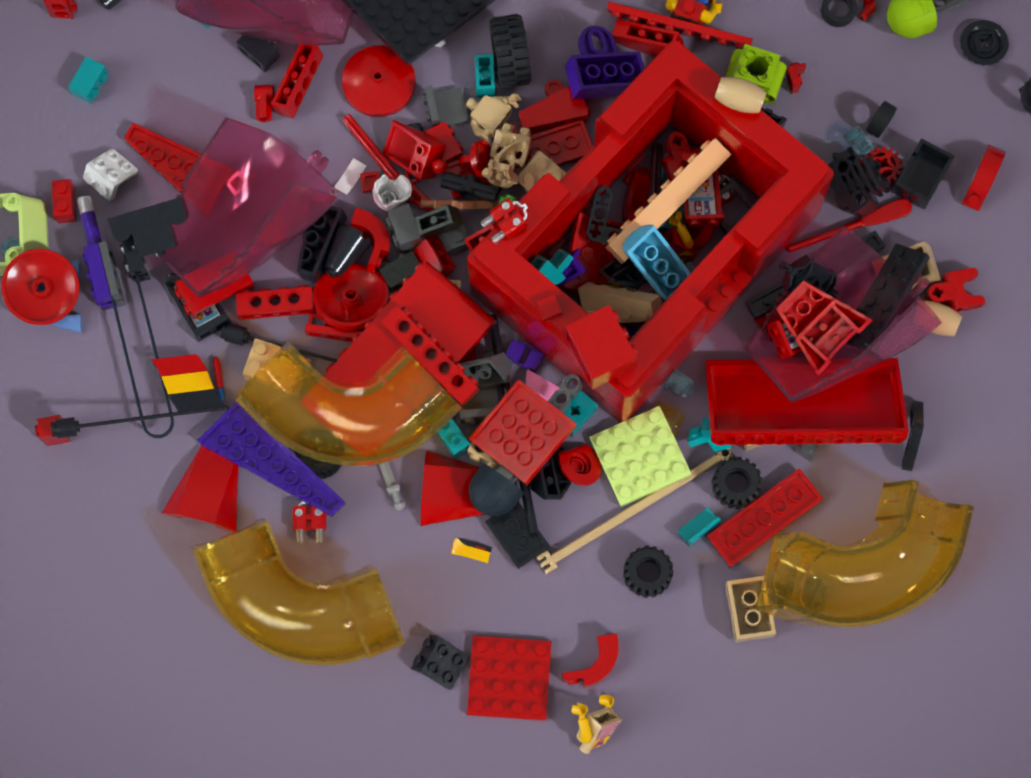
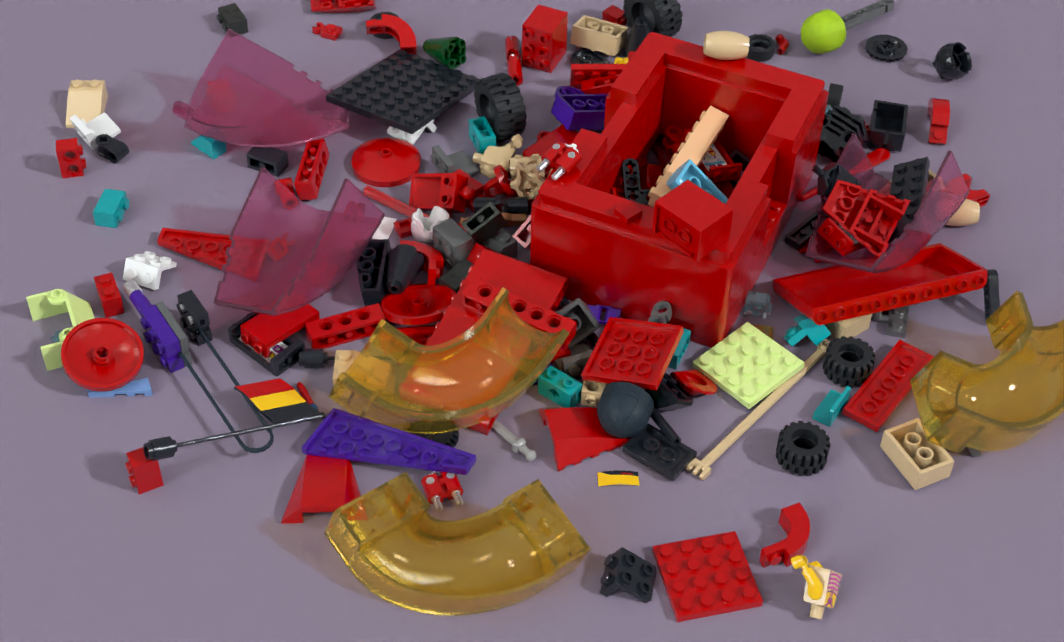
camera: 20 degrees left, 30 degrees down
(151, 226) = (206, 274): black brick -> none

